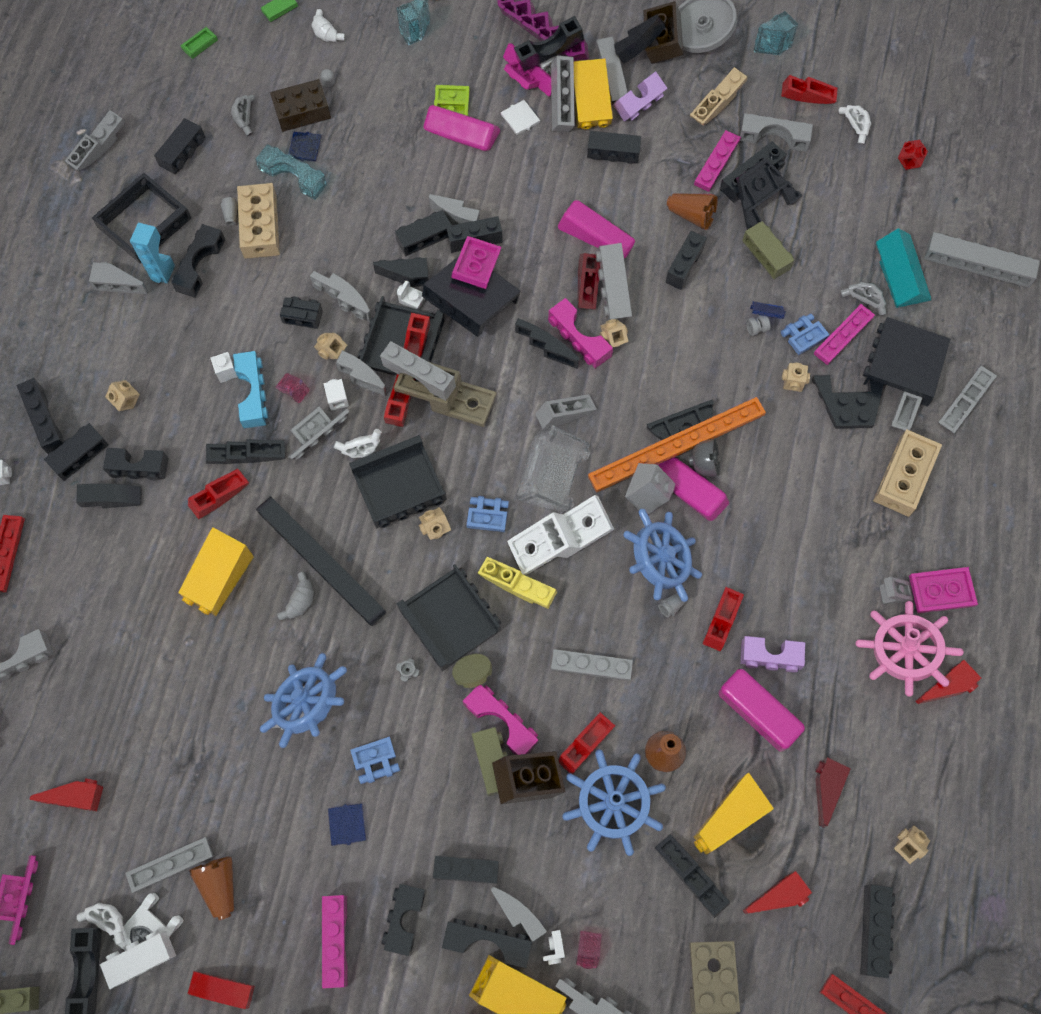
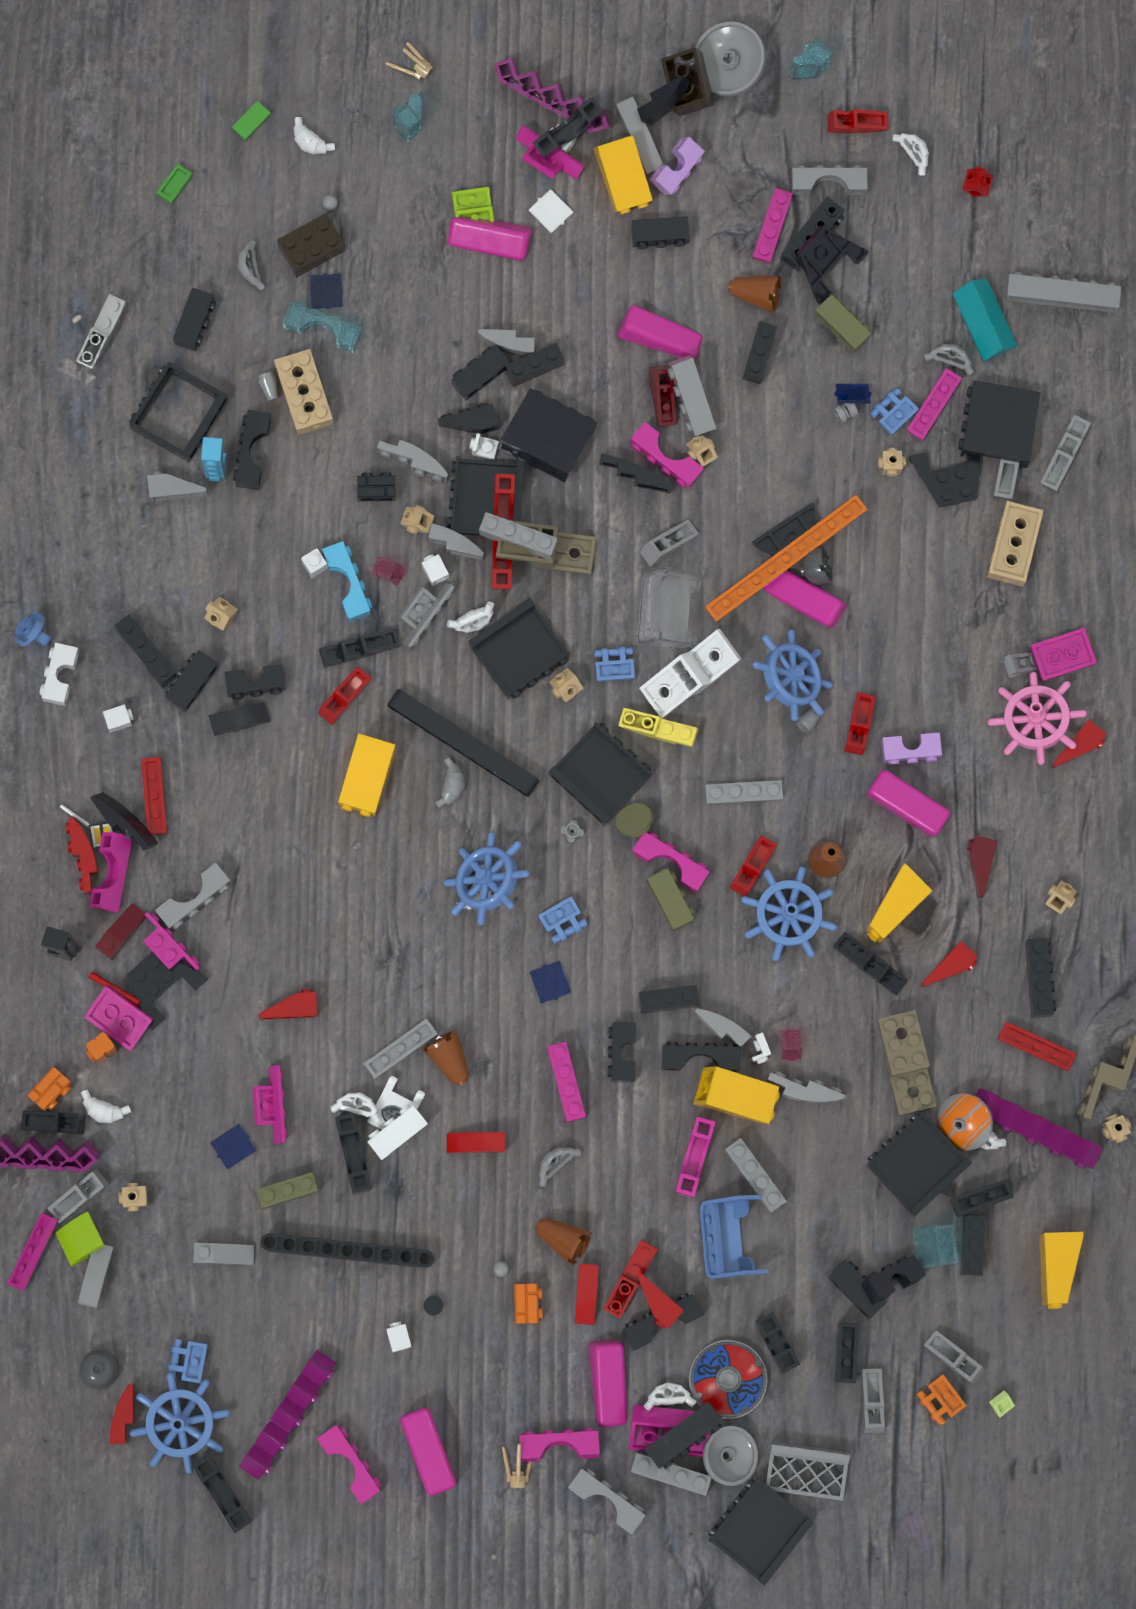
camera: 20 degrees left, 10 degrees up
(476, 262) = (546, 401): dark pink plate -> none
(528, 777) = (708, 907): dark brown brick -> none
(562, 93) = (594, 183): light grey brick -> none
(649, 487) = (767, 609): light grey slope -> none
(719, 98) = (761, 150): tan slope -> none

